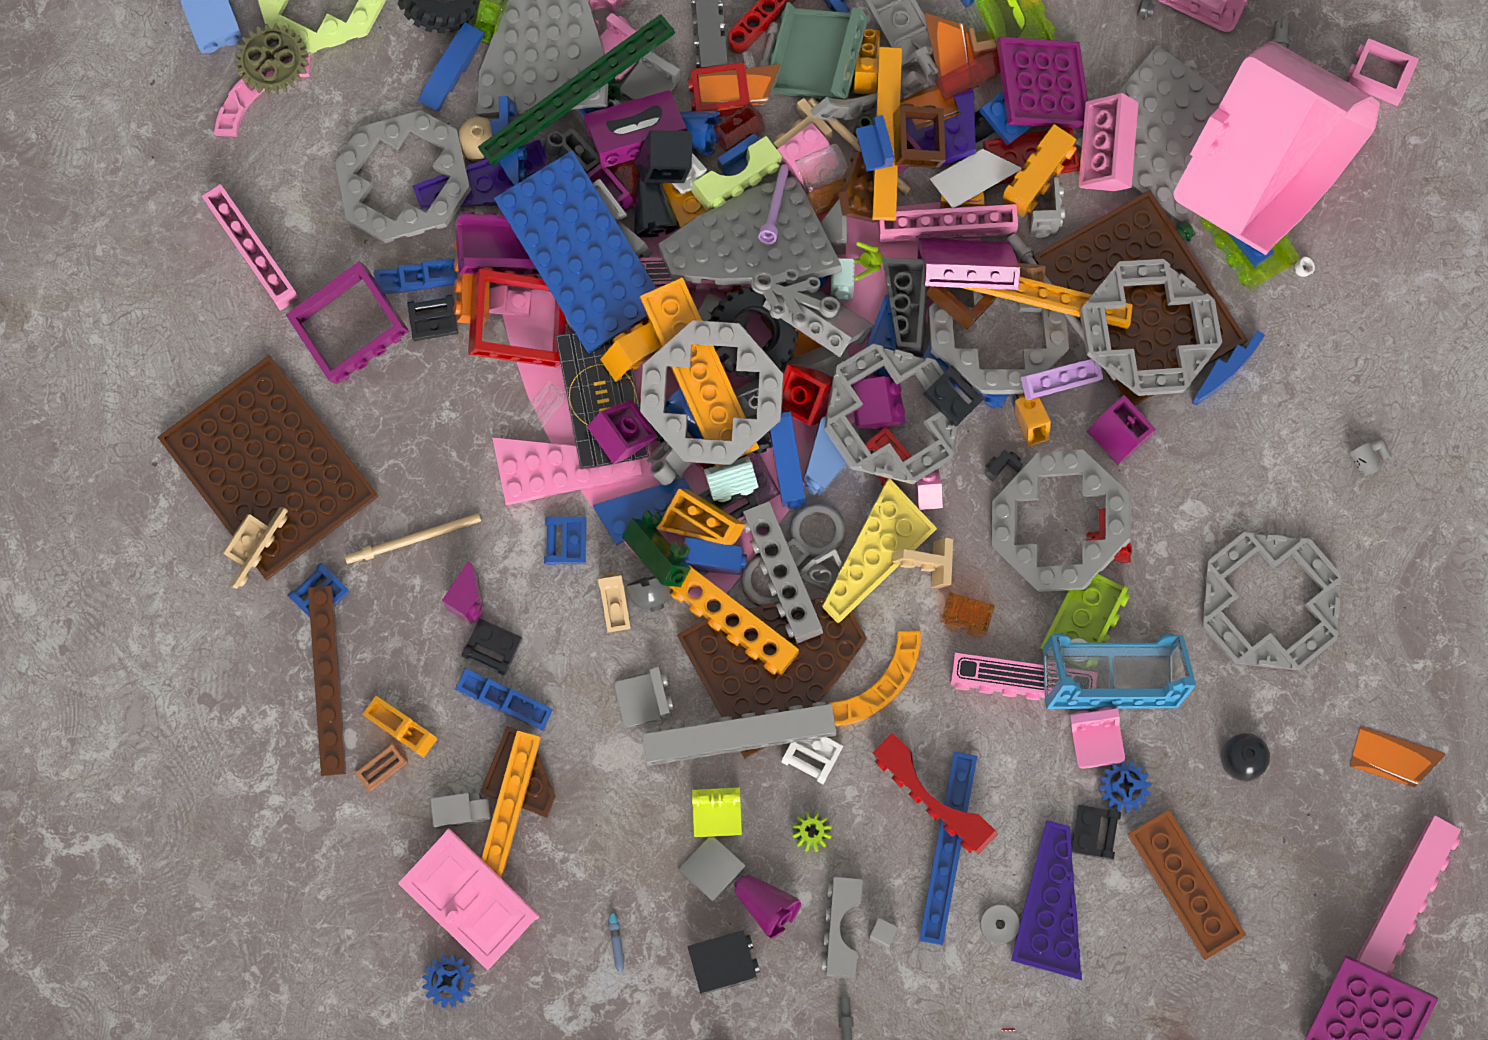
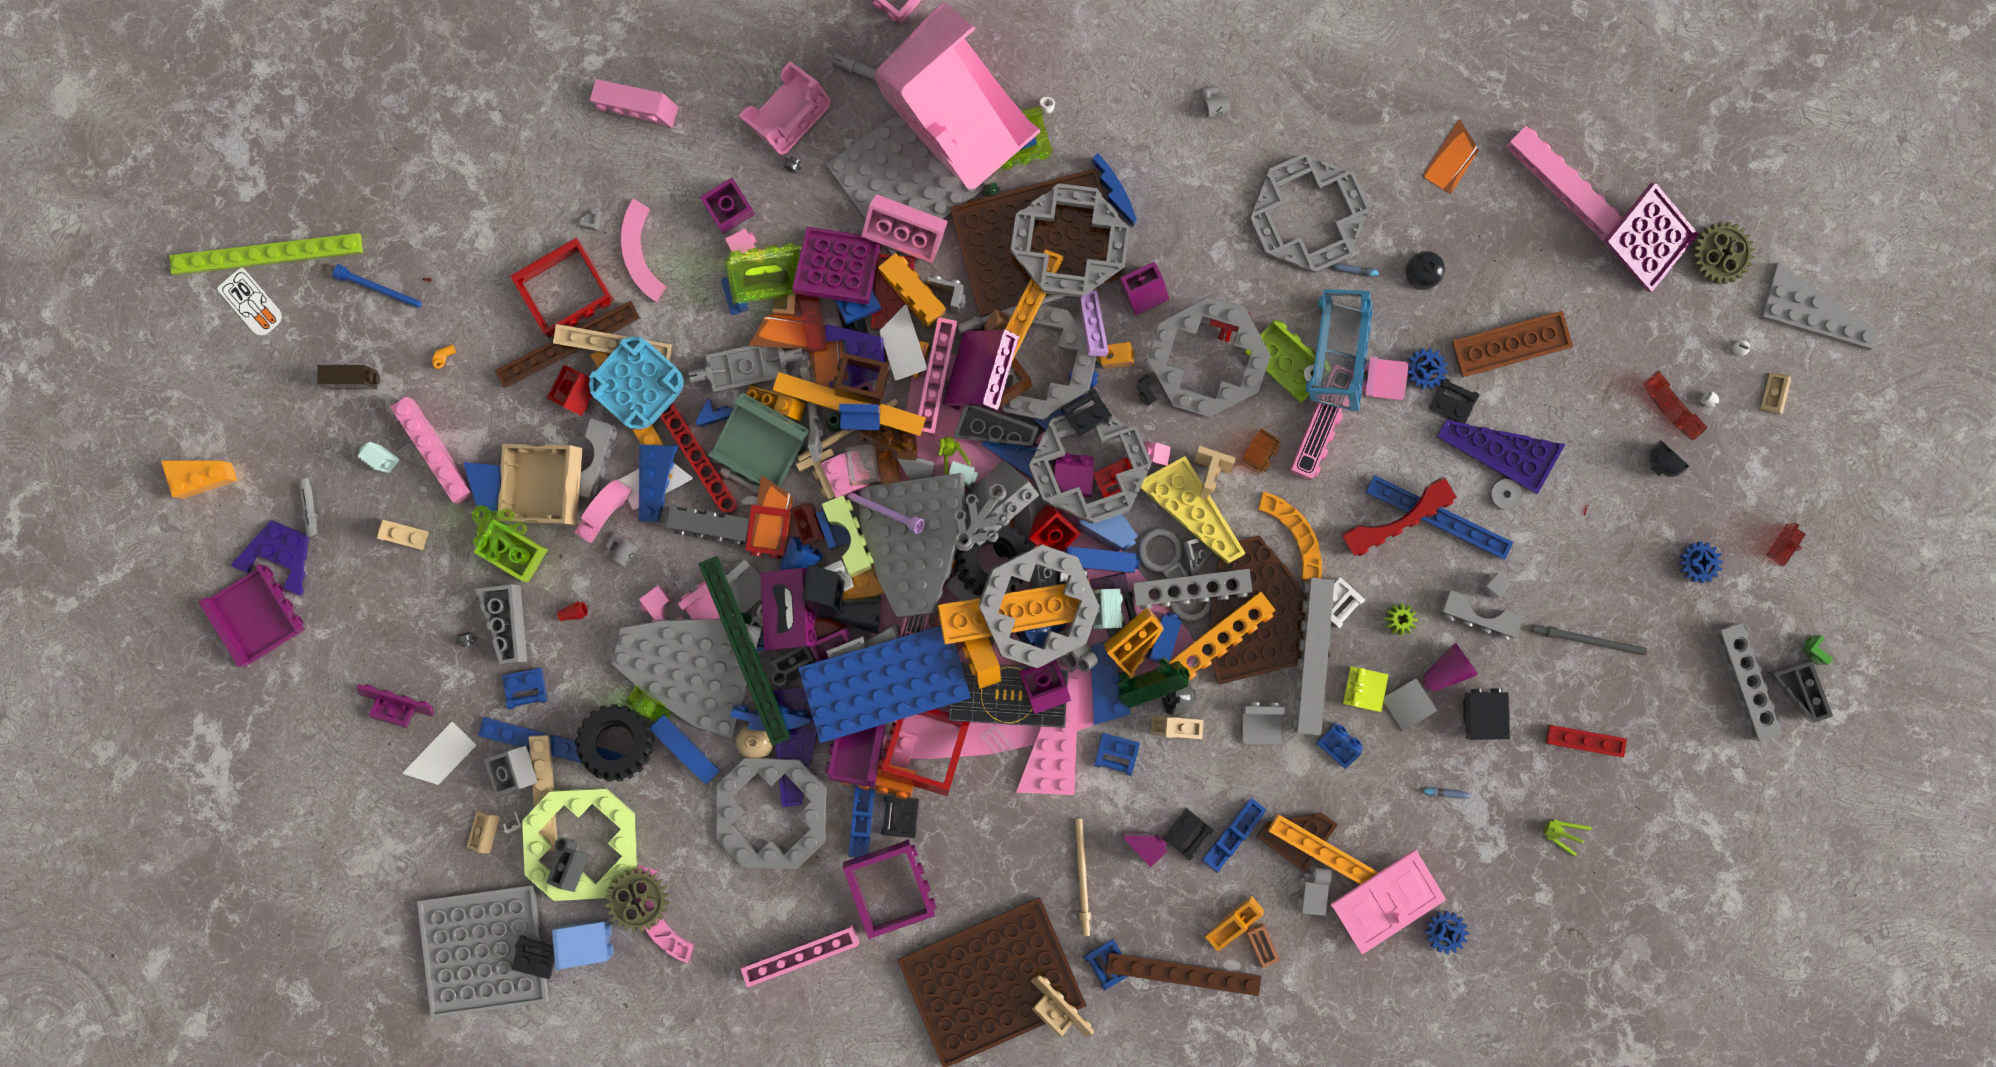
camera: 80 degrees left, 10 degrees up
(642, 798) = (1340, 745): none -> blue bracket
(1220, 674) = (1356, 270): none -> sand blue piece

